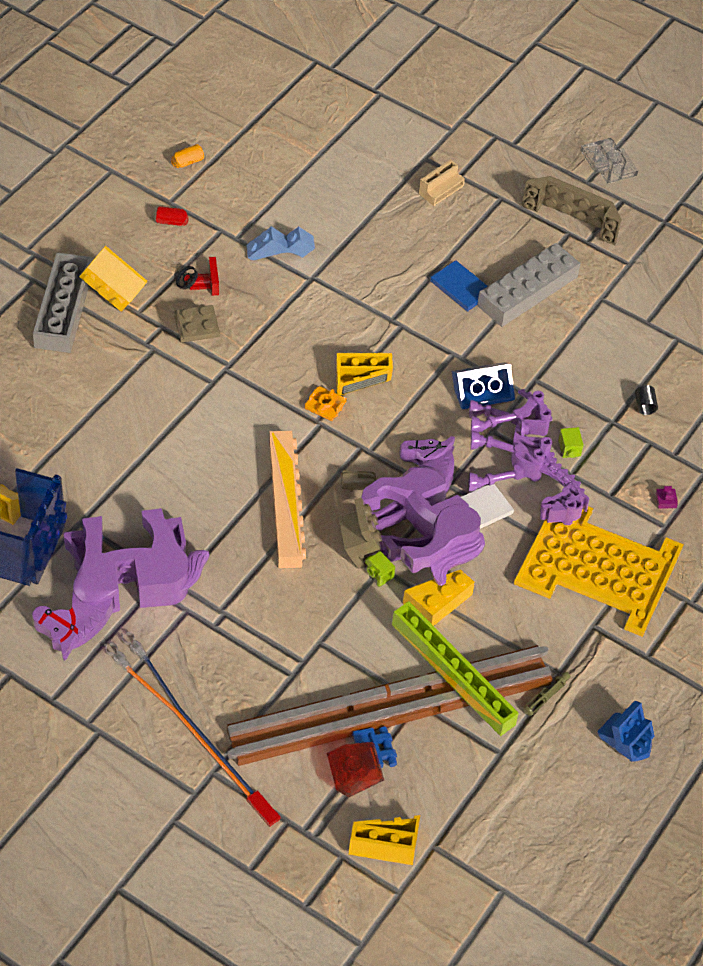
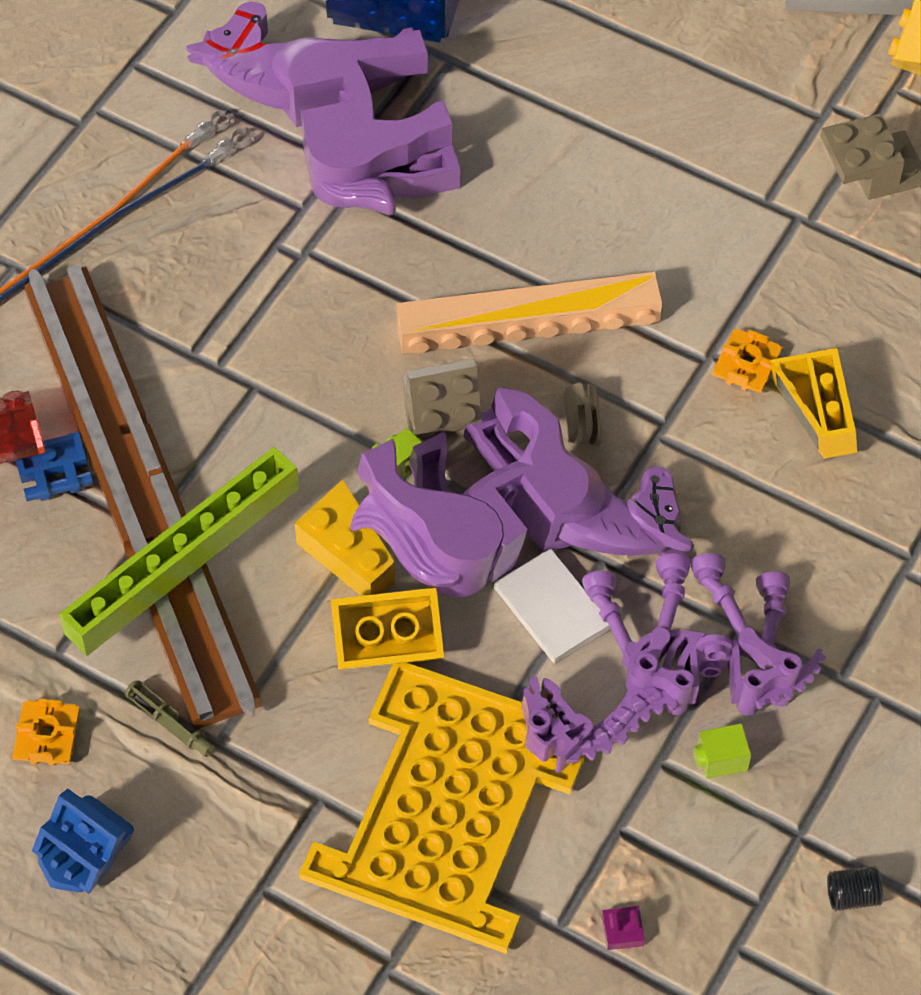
camera: 90 degrees right, 5 degrees up
(484, 384) = (836, 600): blue slope -> none
(498, 580) = (387, 628): none -> yellow slope
(547, 762) = (44, 748): none -> light orange piece

